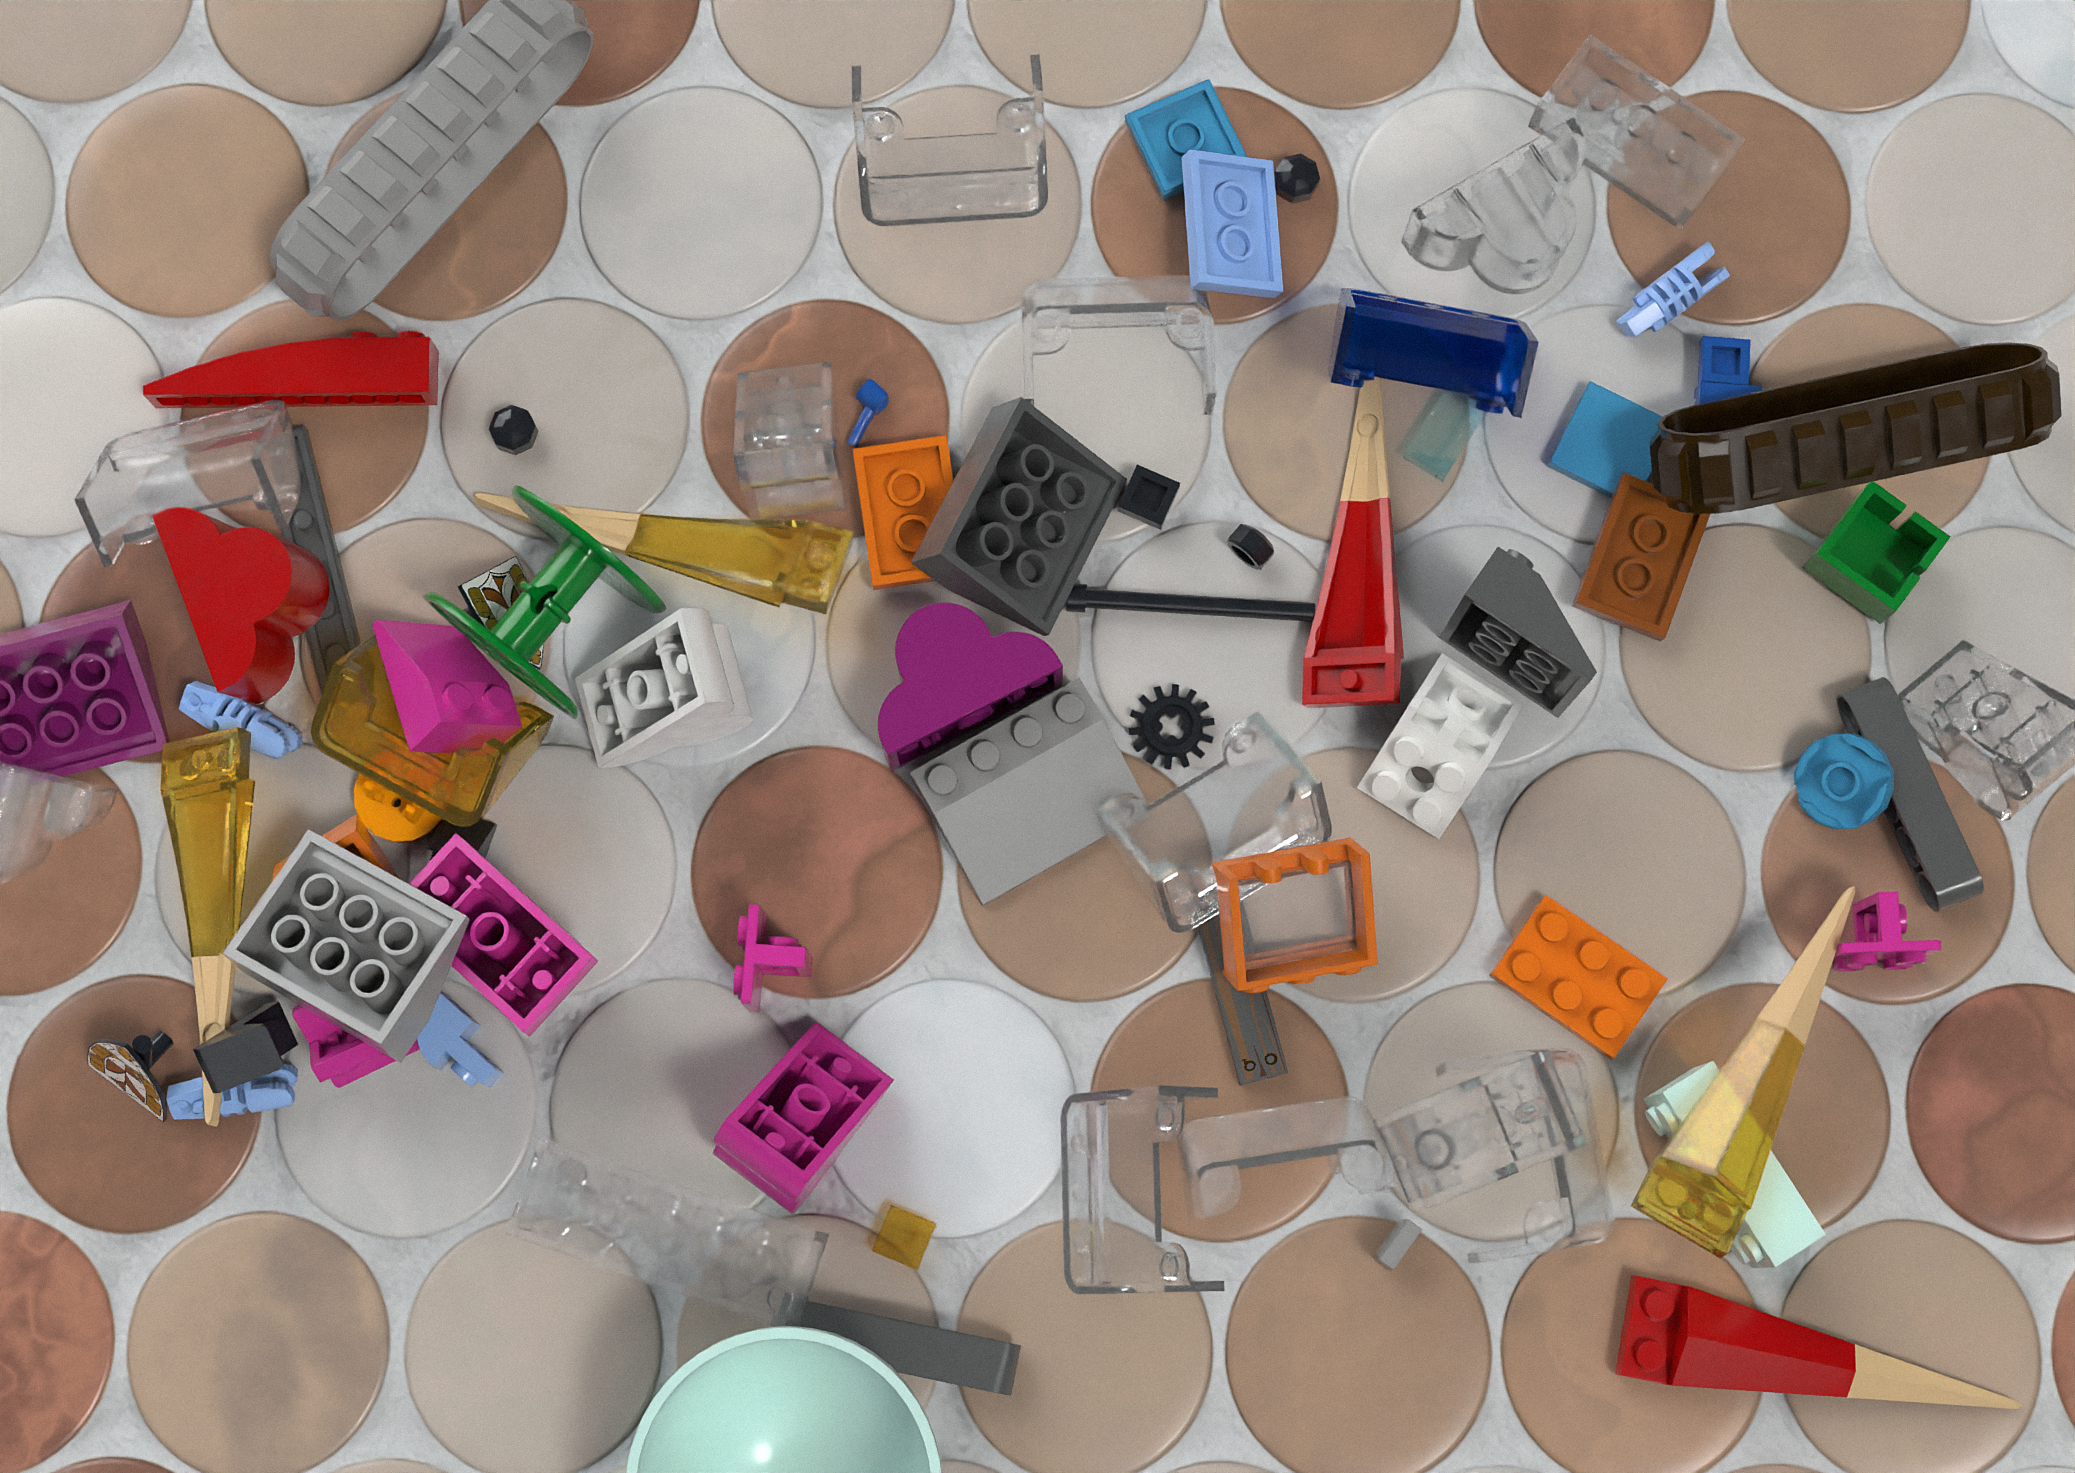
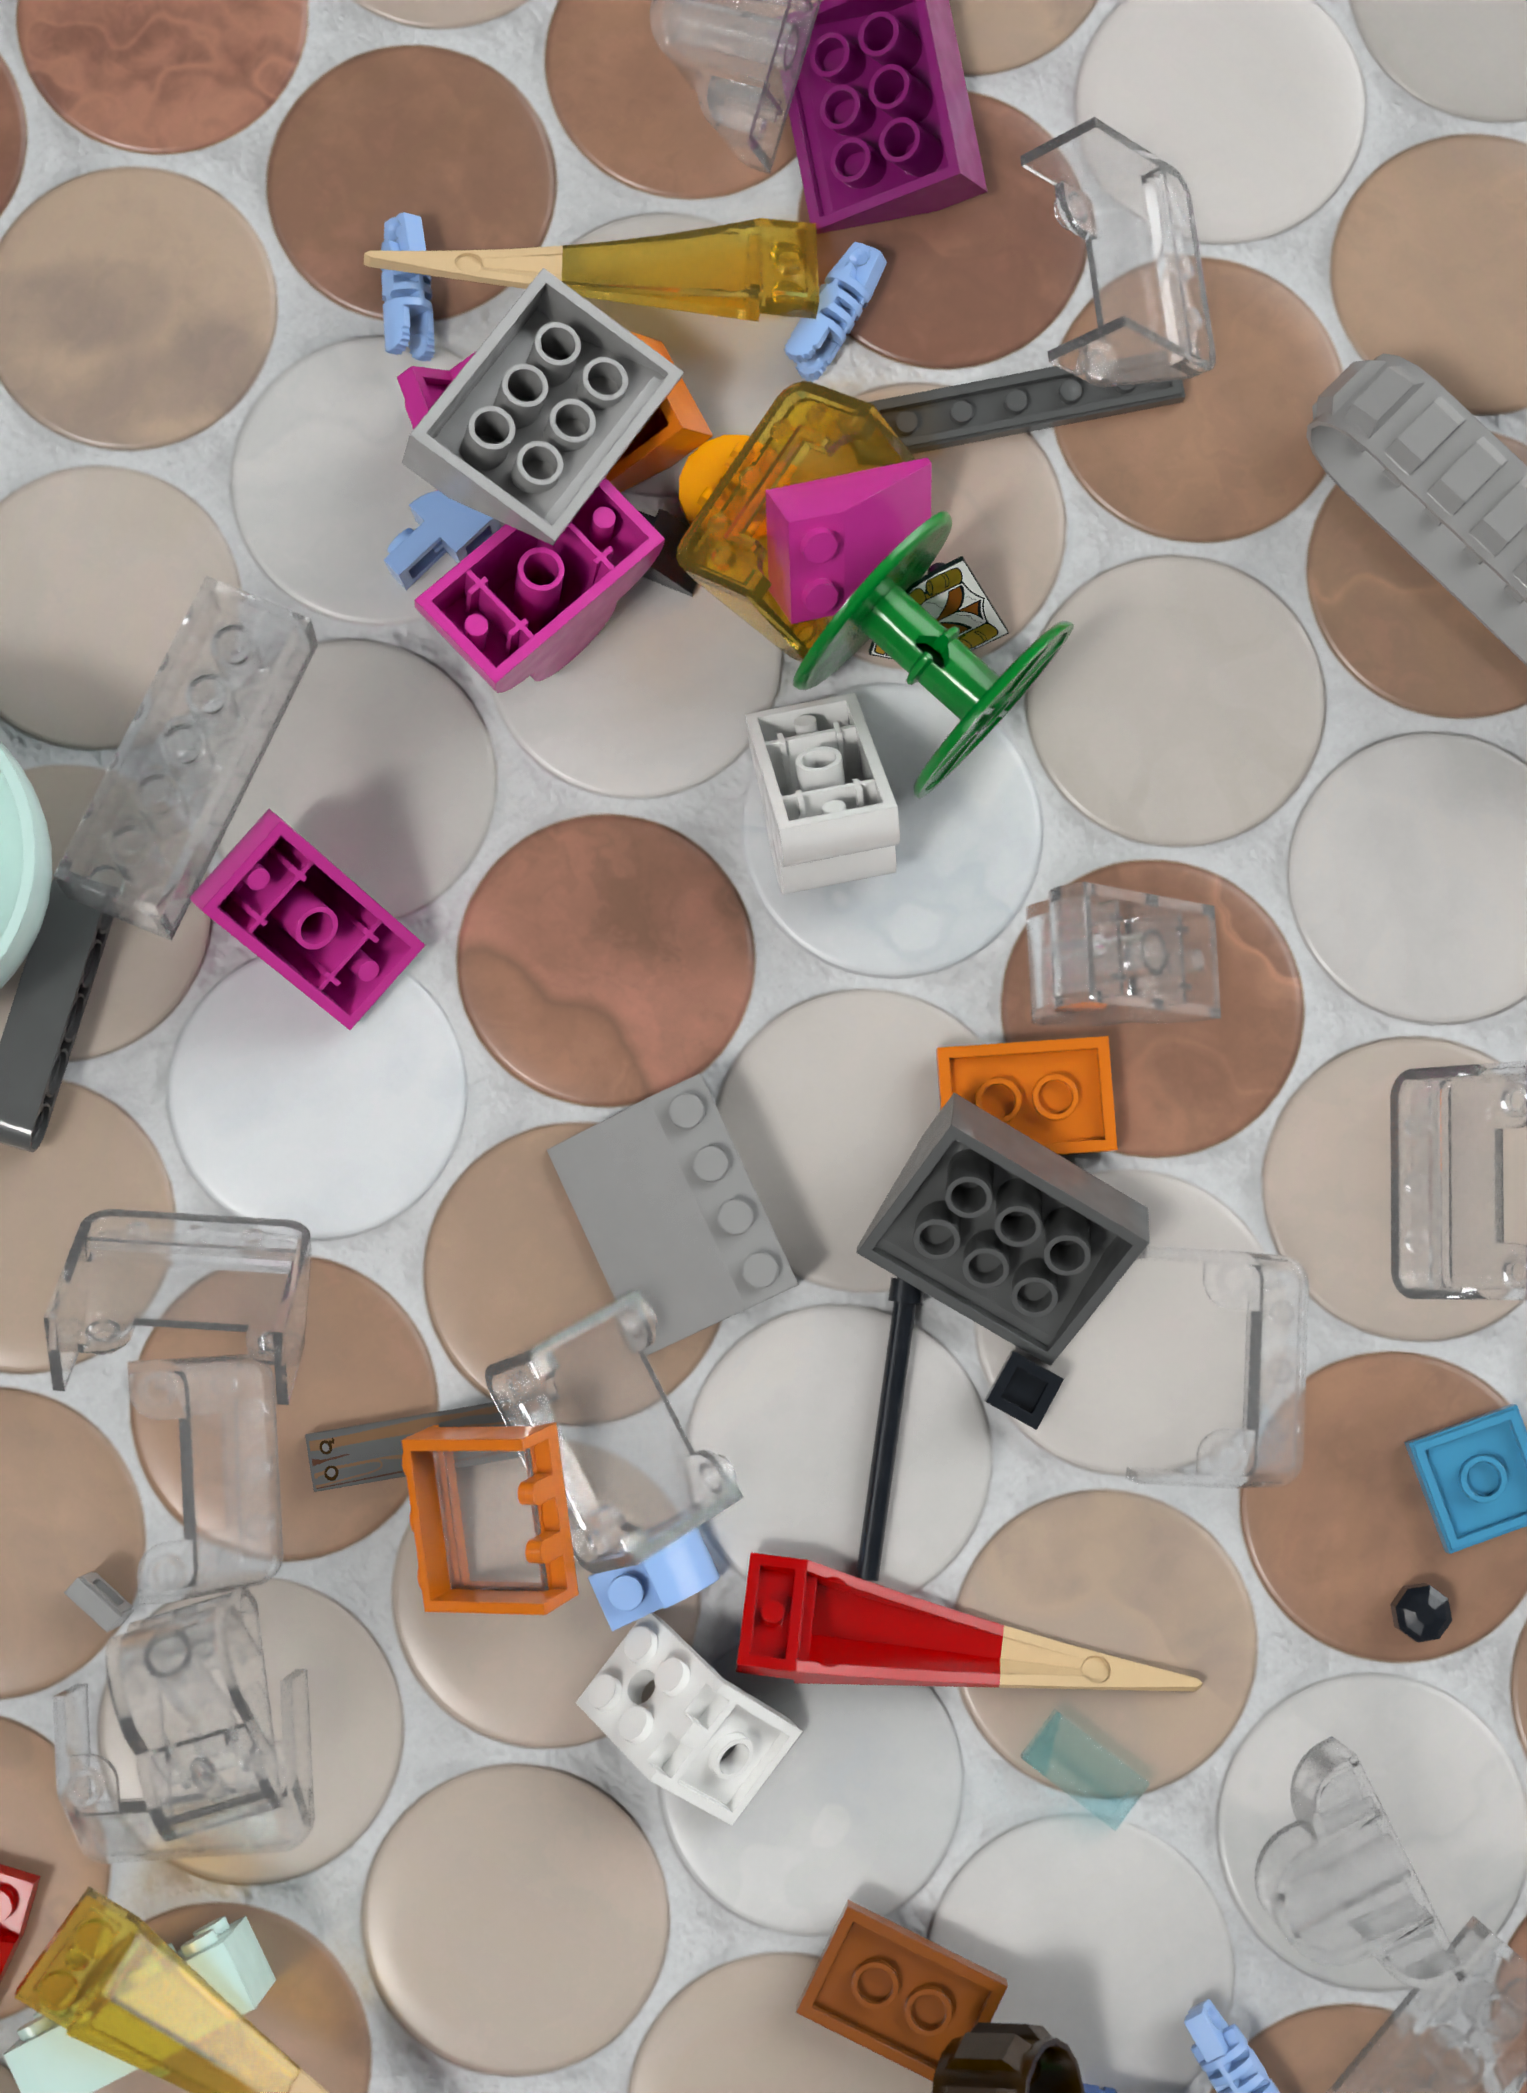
camera: 95 degrees right, 5 degrees up
(129, 1068) = (452, 188): shield -> none
(243, 598) = (974, 312): red brick -> none
(247, 1048) = (446, 299): black slope -> none
(311, 374) = (1246, 409): red slope -> none
(513, 430) = (1163, 638): black tile -> none
(756, 559) = (976, 923): clear yellow plate -> none
(780, 957) = (495, 905): dark pink bracket -> none
(875, 401) = (1170, 1068): blue hand -> none
(904, 1237) = (171, 1029): clear yellow tile -> none
(958, 680) = (810, 1134): magenta brick -> none
(1171, 707) = (739, 1416): black gear -> none
(1232, 224) = (1362, 1524): light blue plate -> none
(1251, 546) = (952, 1510): black tile -> none
(1344, 792) = (656, 1582): none -> light blue brick
(1432, 347) = (1187, 1766): clear blue windscreen -> none
(1520, 633) = (804, 1831): dark grey slope -> none
(1578, 977) = (395, 1854): orange plate -> none
(1605, 440) = (1055, 1969): dark azure tile -> none

